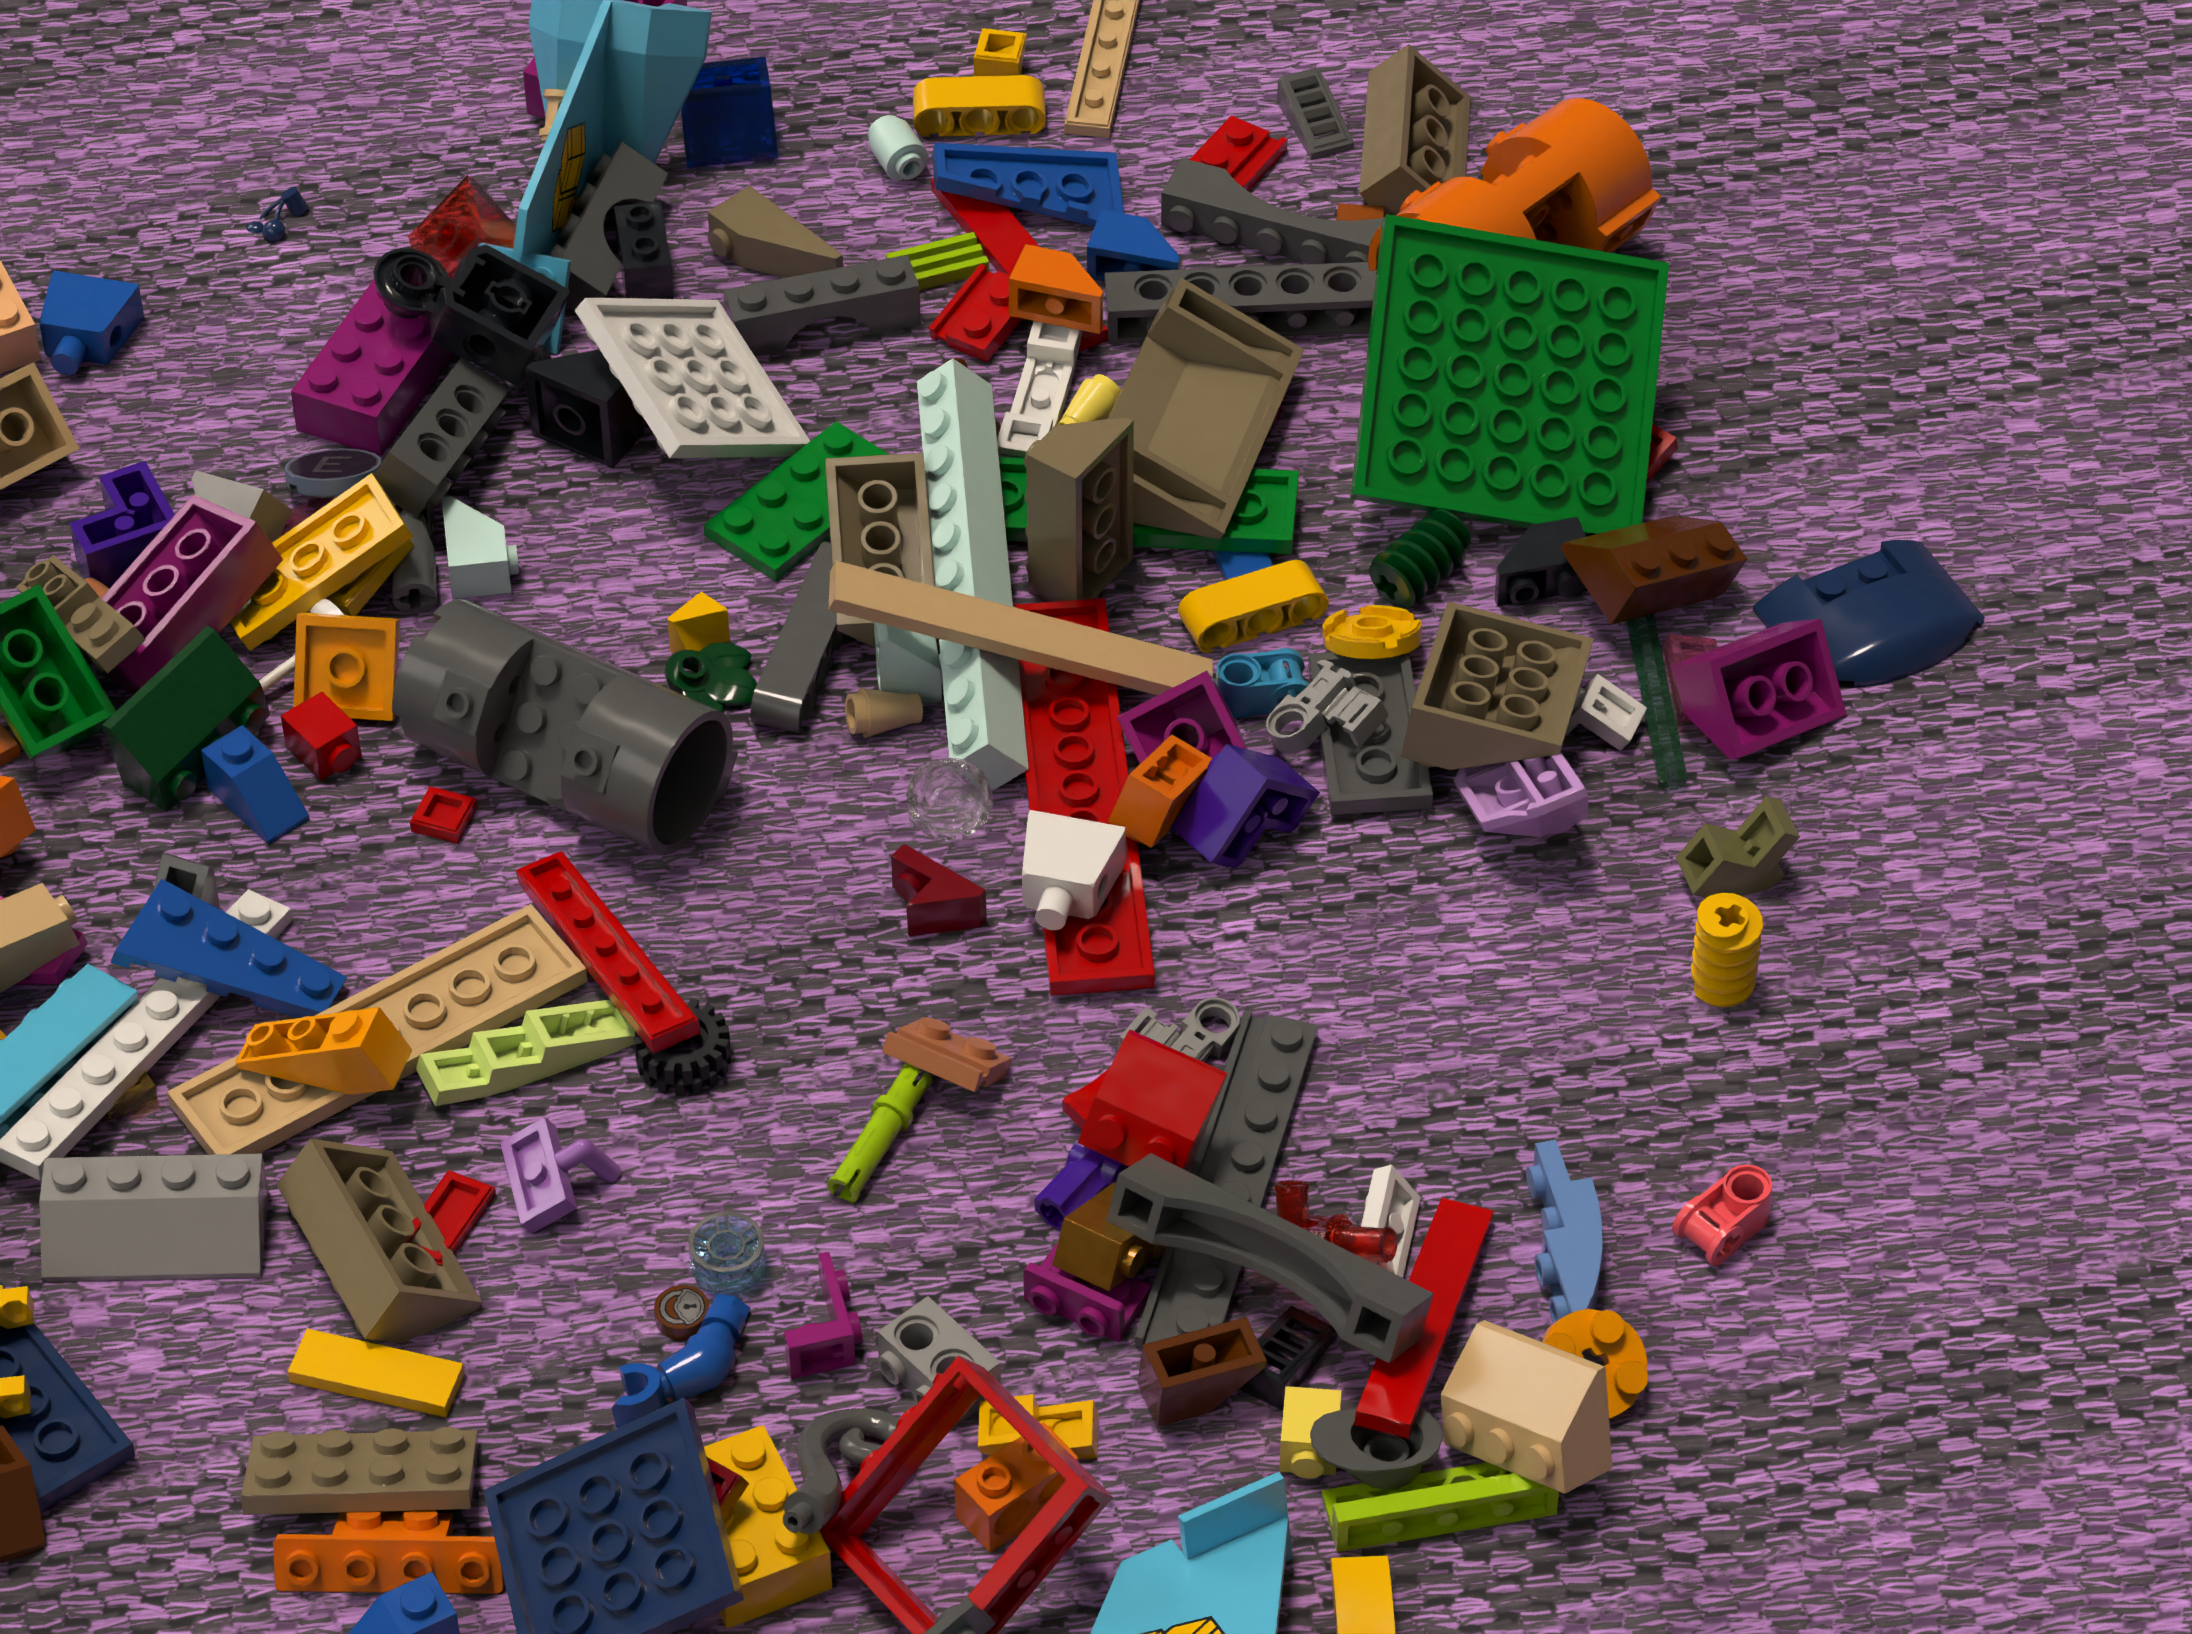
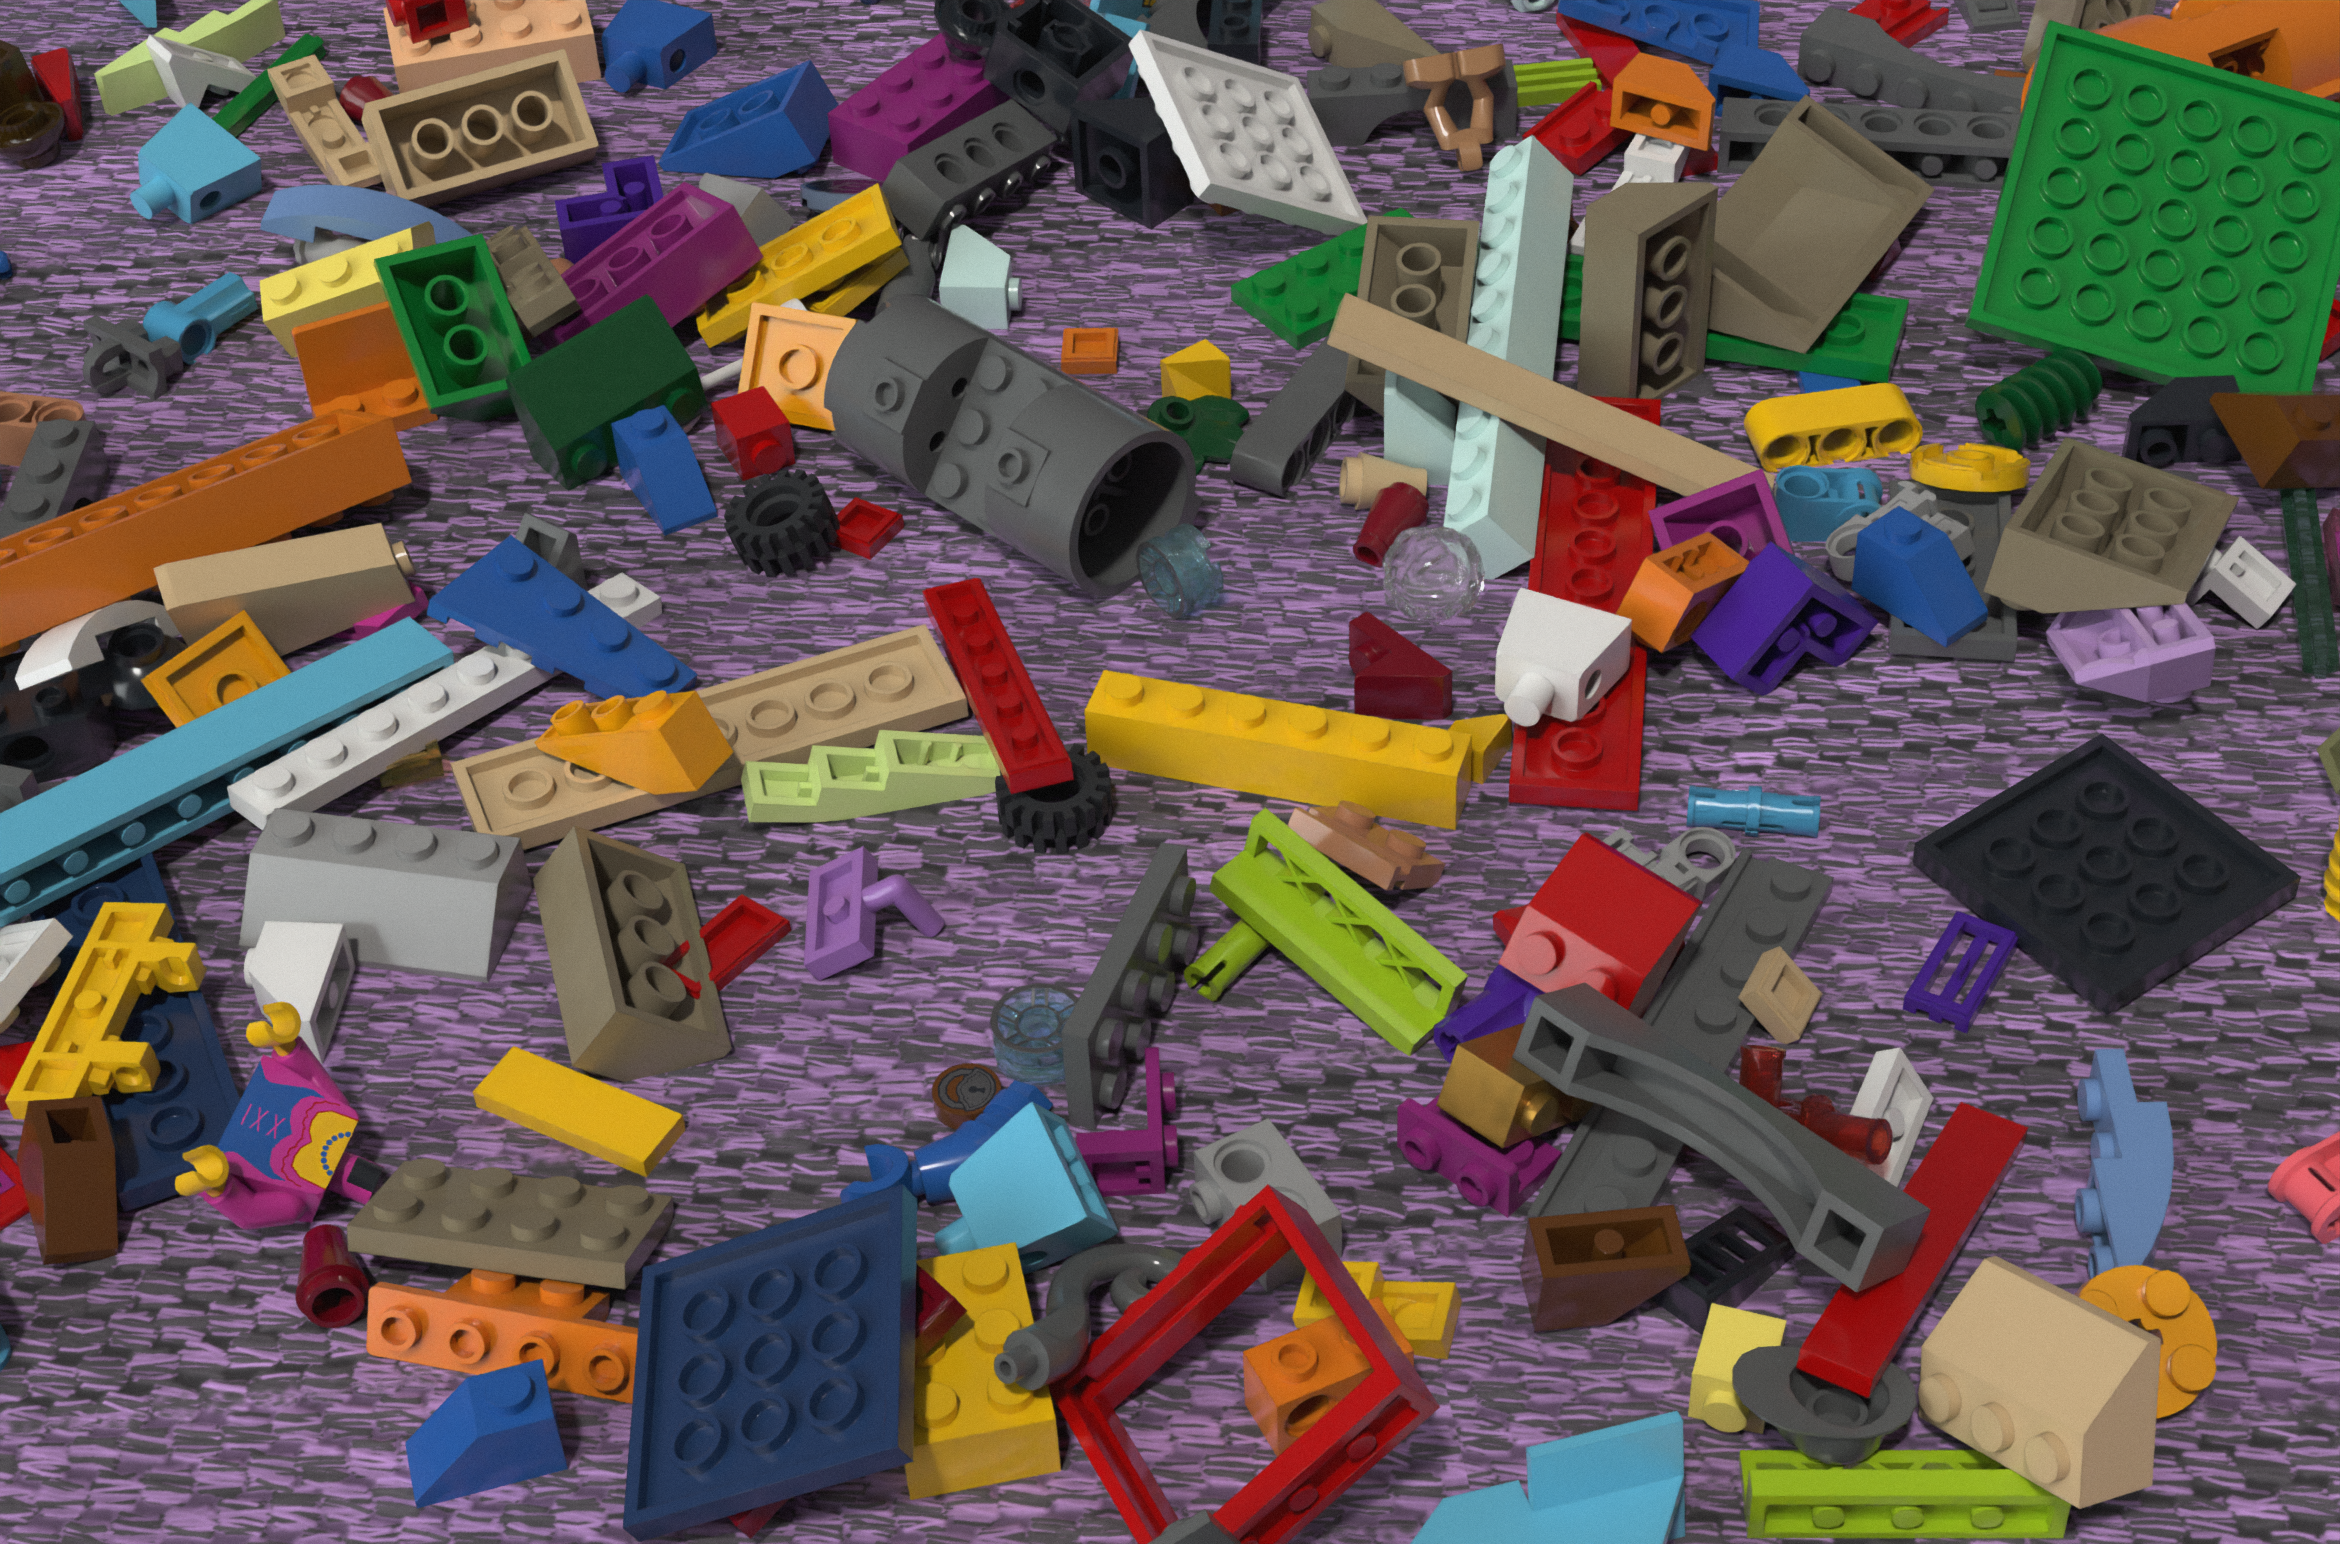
camera: 15 degrees right, 5 degrees down
(111, 1303) = (304, 967): none -> white slope
(161, 1433) = (282, 1139): none -> torso
(216, 406) = (757, 129): none -> blue slope
(230, 1537) = (330, 1278): none -> dark red cone
(387, 842) = (781, 522): none -> black tyre
(593, 607) = (1090, 350): none -> orange tile
(733, 823) = (1178, 570): none -> clear light blue wheel
(759, 1384) = (1027, 1190): none -> medium azure torso
(794, 1203) = (1128, 987): none -> dark grey plate
(852, 284) = (1438, 74): none -> medium nougat piece
(856, 978) = (1279, 748): none -> yellow brick
(900, 749) = (1391, 513): none -> dark red cone
(943, 1139) = (1337, 939): none -> lime fence
(1011, 950) = (1489, 742): none -> yellow slope
(1246, 975) = (1753, 811): none -> dark azure pin
(1293, 1132) = (1780, 995): none -> tan tile
(1346, 750) = (1917, 577): none -> blue slope
(1417, 1121) = (1944, 1006): none -> dark purple tile
(1524, 988) = (2106, 872): none -> black plate

